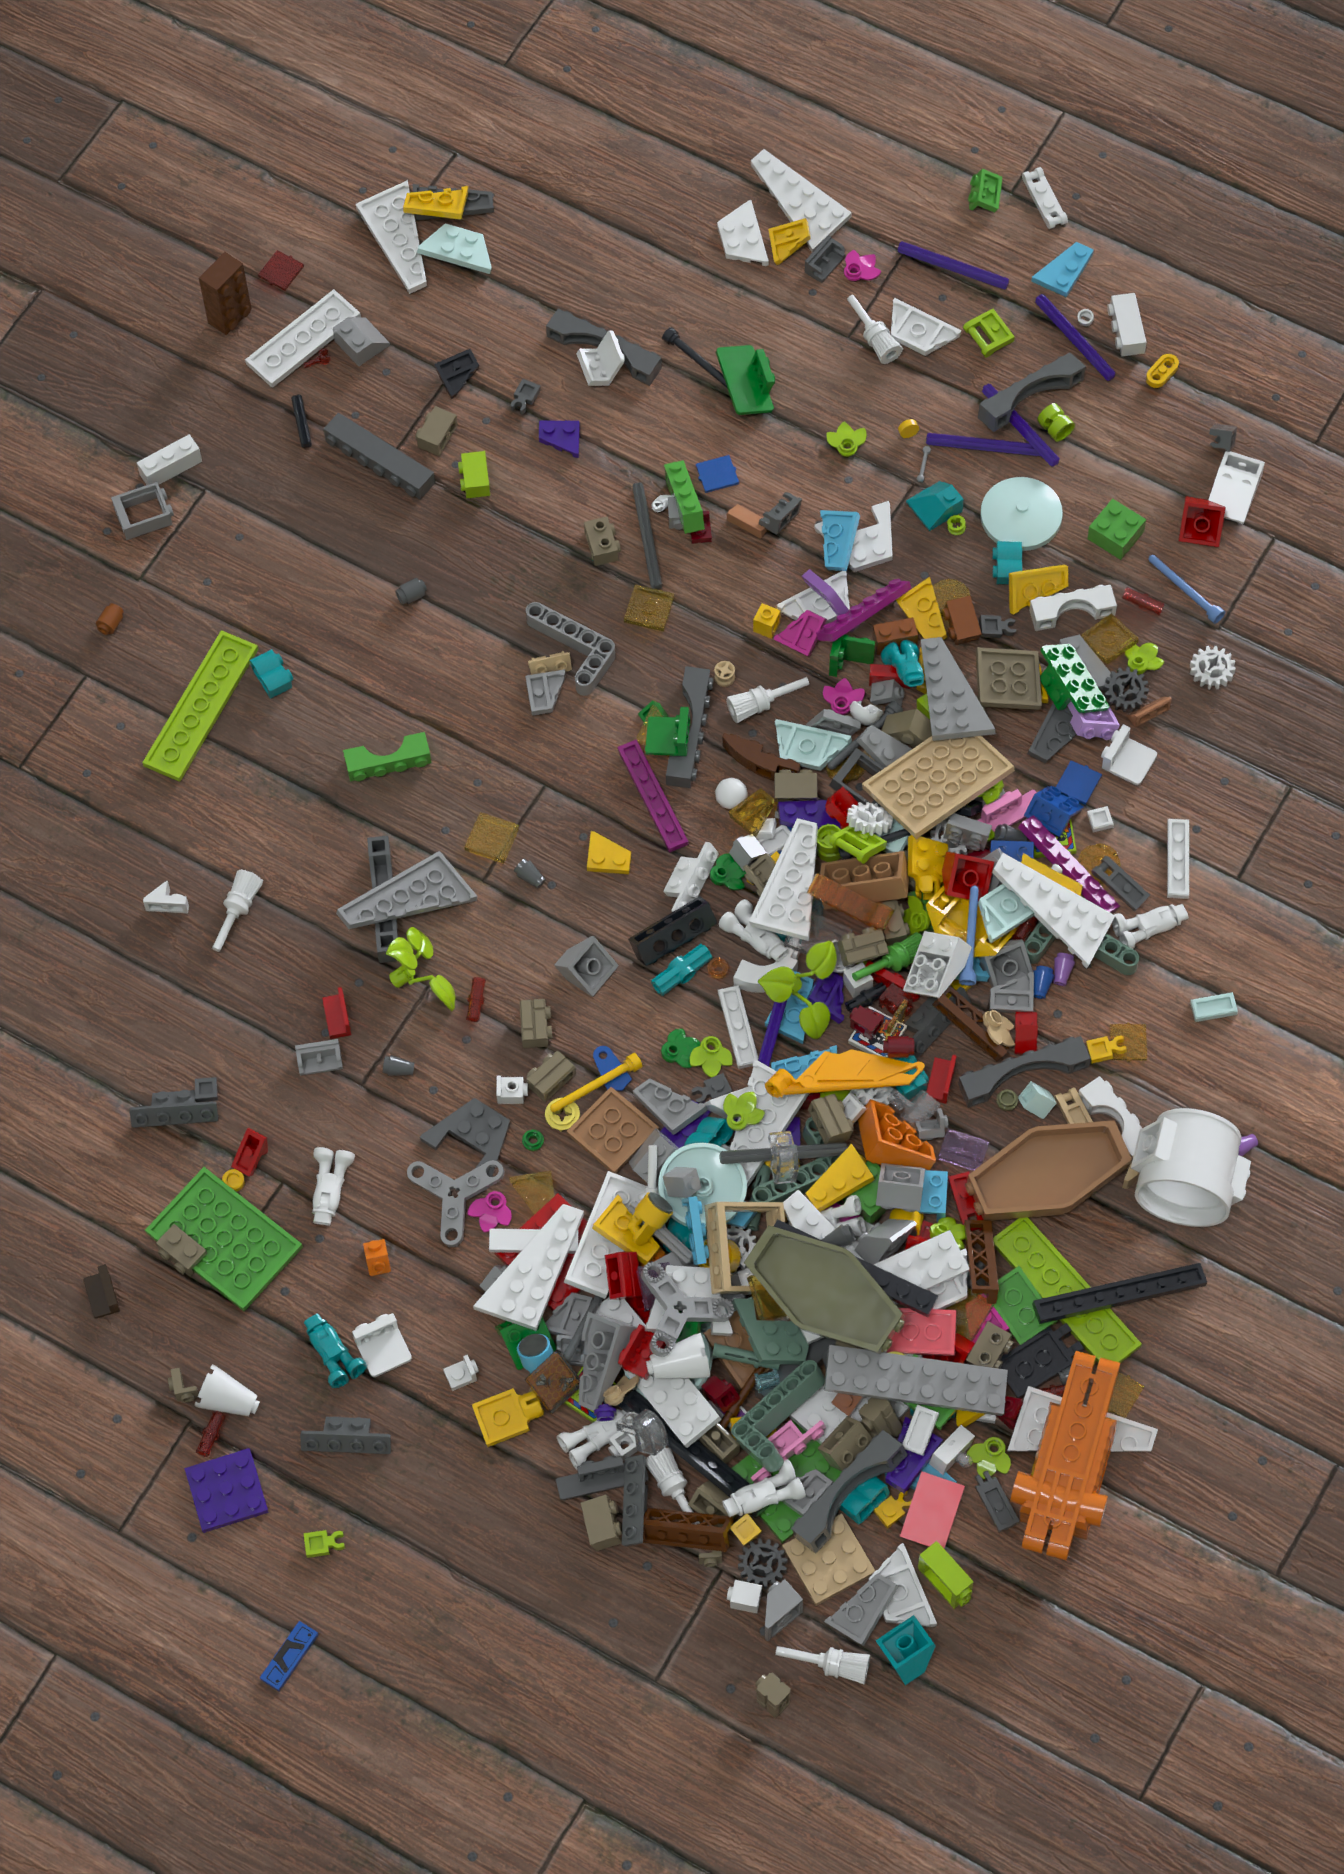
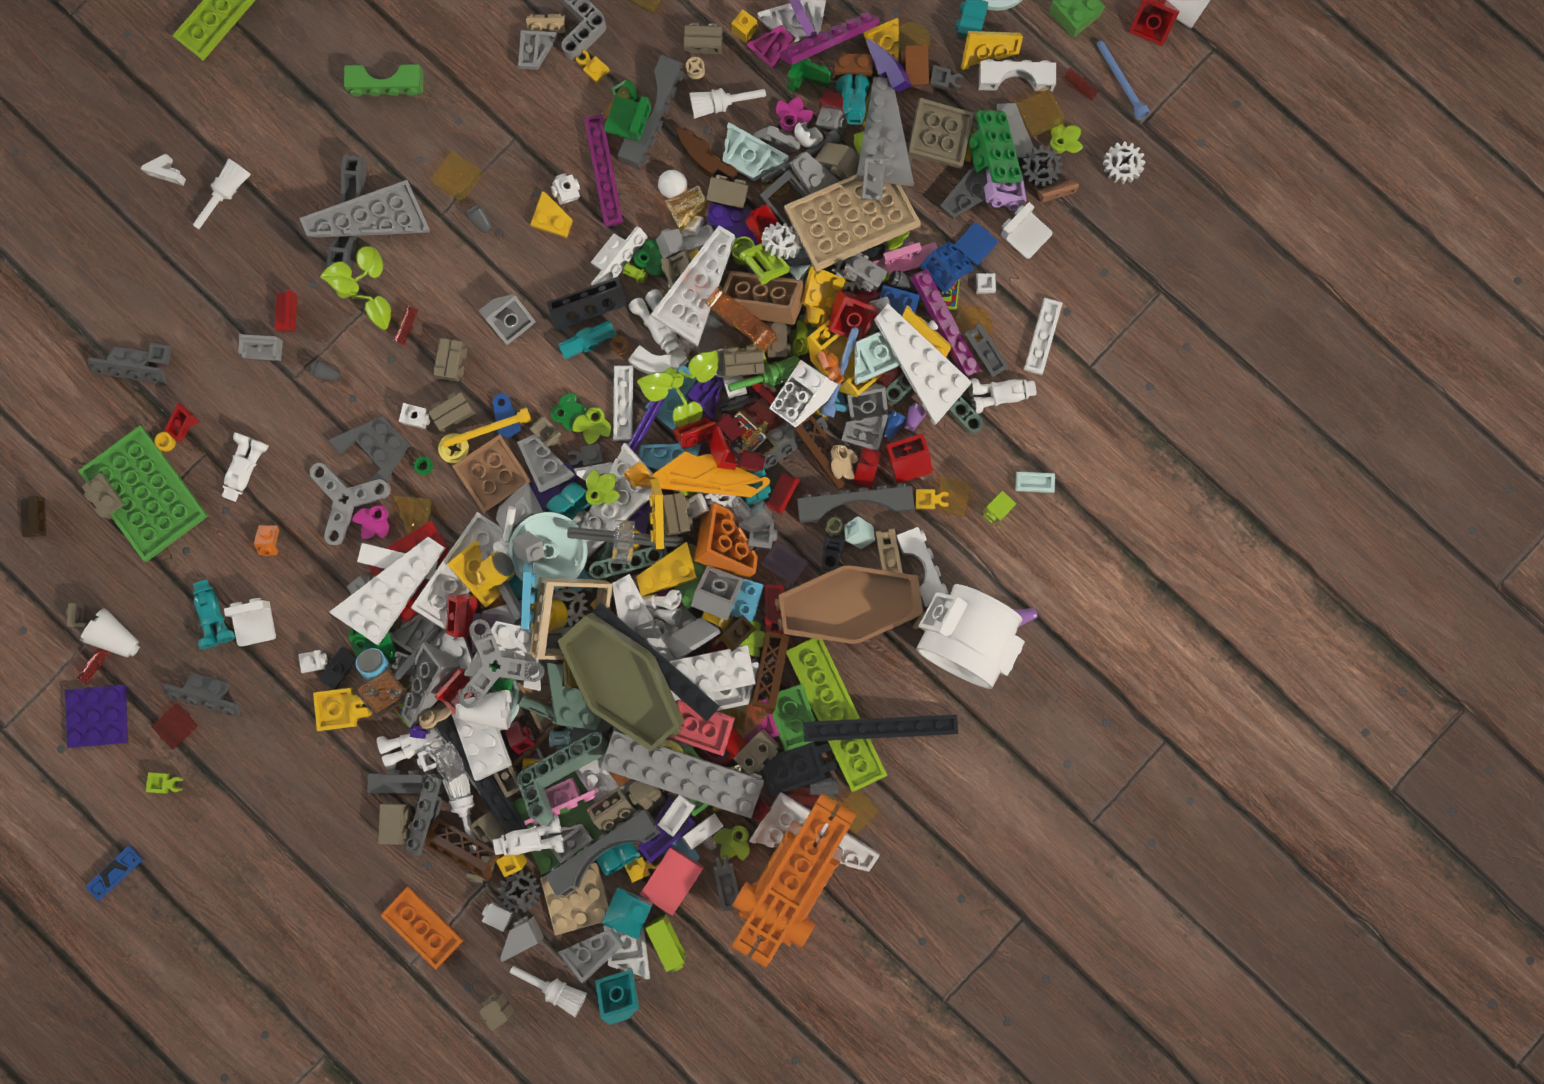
camera: 15 degrees right, 20 degrees up
(319, 1481) = (174, 726): none -> clear red piece
(491, 1374) = (338, 668): none -> black plate
(613, 698) = (593, 68): none -> yellow plate
(617, 822) = (562, 194): none -> white brick
(660, 1633) = (422, 927): none -> orange tile
(661, 1072) = (545, 431): none -> dark tan bracket
(716, 891) = (636, 273): none -> lime pin
(725, 642) = (703, 38): none -> dark tan brick
(814, 1114) = (656, 516): none -> yellow wing
(829, 1035) = (694, 433): none -> red bracket
(861, 1040) = (721, 450): none -> red panel
(893, 1554) = (627, 913): none -> teal slope
(932, 1224) = (736, 633): none -> dark brown panel
(934, 625) = (888, 67): none -> slope
(952, 734) = (873, 179): none -> light grey hinge
(957, 925) = (830, 364): none -> orange plate
(1012, 1123) = (832, 549): none -> black piece
(1069, 1009) = (909, 458): none -> red slope
(1181, 1037) = (998, 508): none -> lime brick

